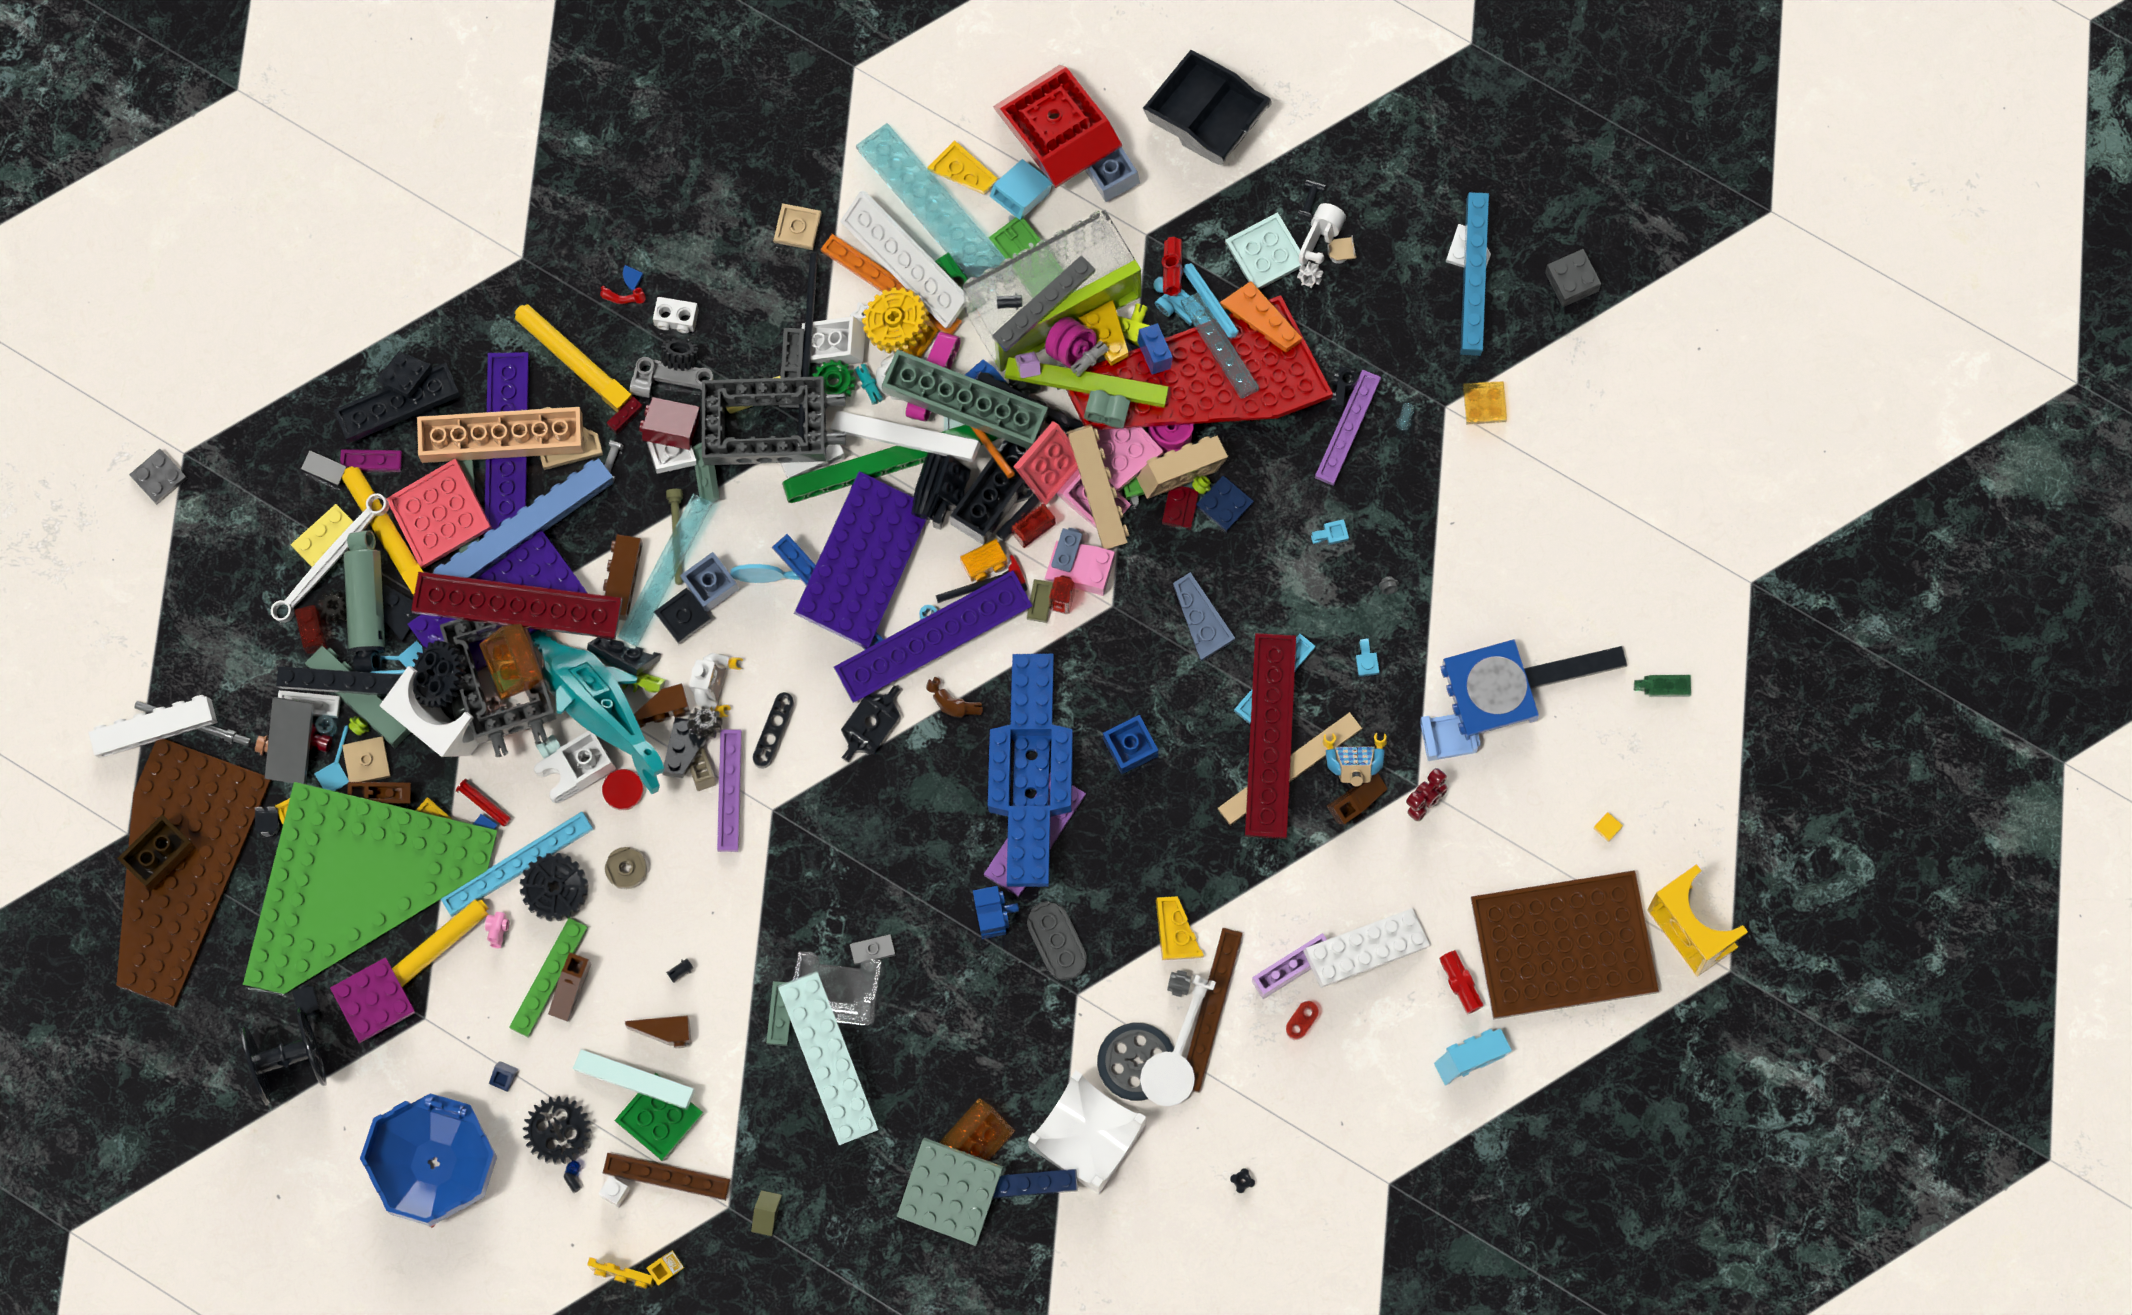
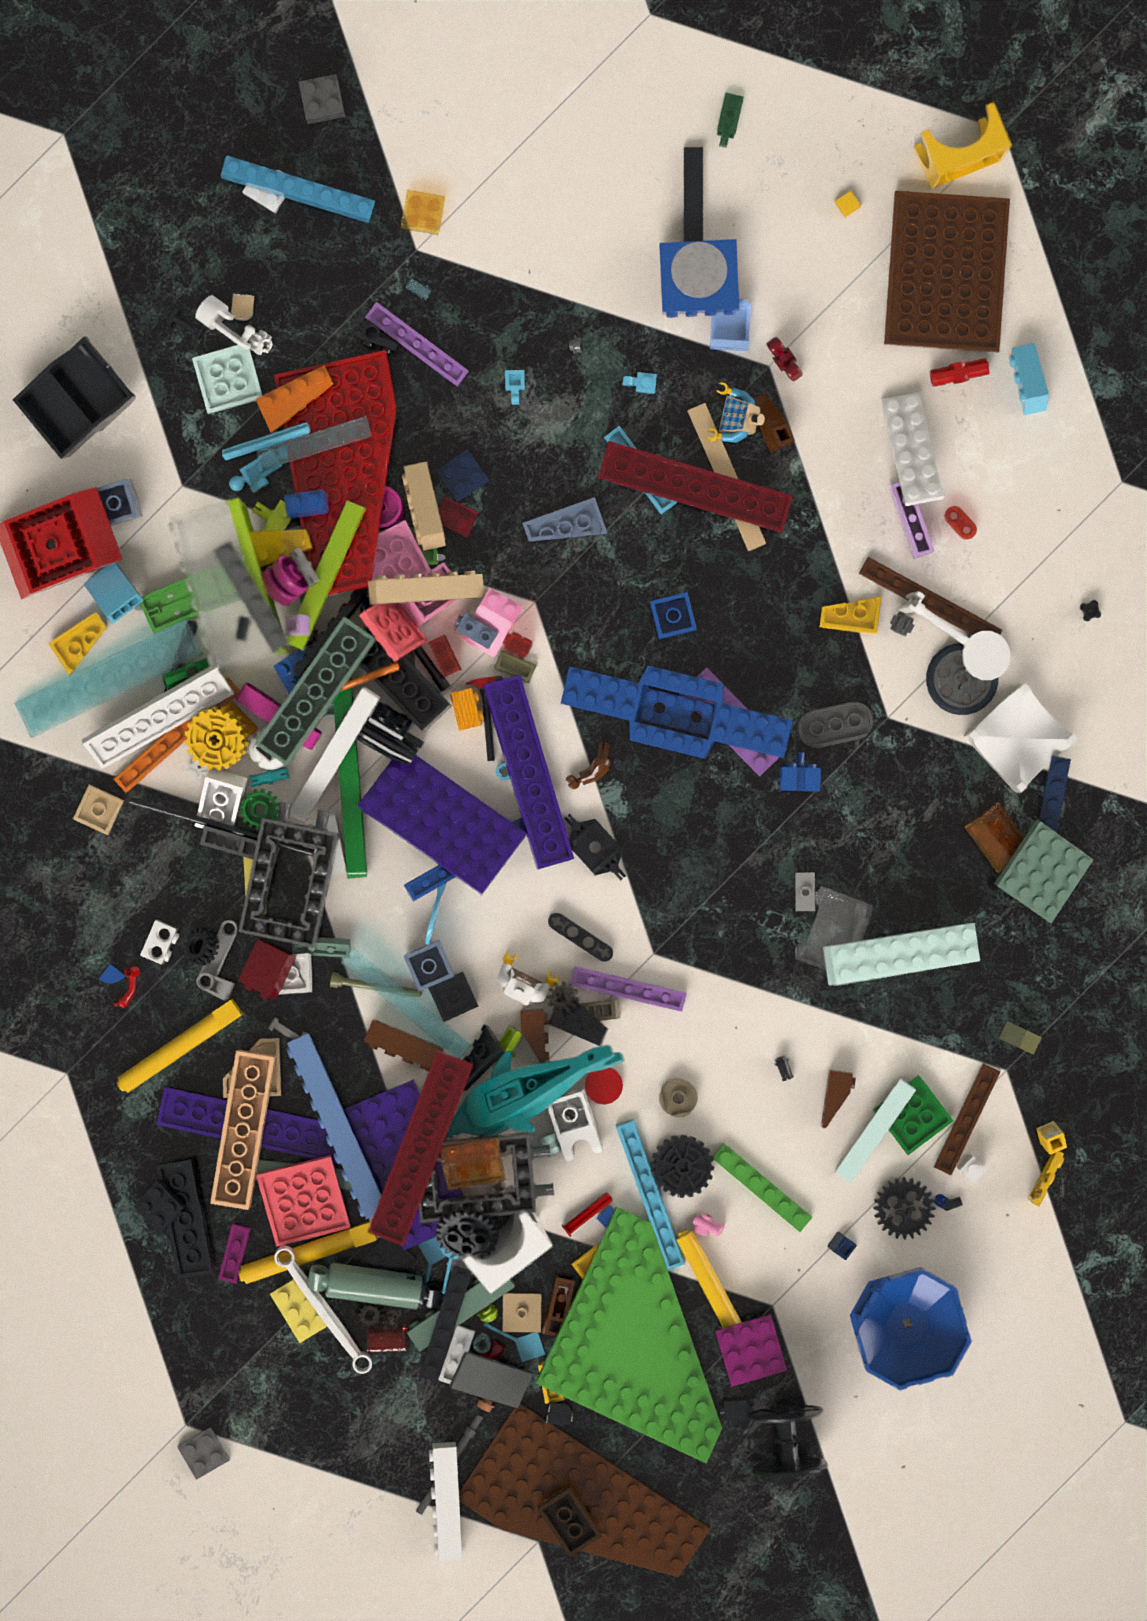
camera: 80 degrees left, 15 degrees up
(323, 467) = (233, 1298): light grey slope -> none
(569, 986) = (777, 1170): reddish brown slope -> none
(625, 415) = (246, 1009): dark red piece -> none
(778, 1019) = (856, 990): sand green plate -> none
(1107, 409) = (358, 562): sand green brick -> none
(1172, 266) = (232, 470): red piece -> none
(1201, 484) = (441, 492): lime plate -> none

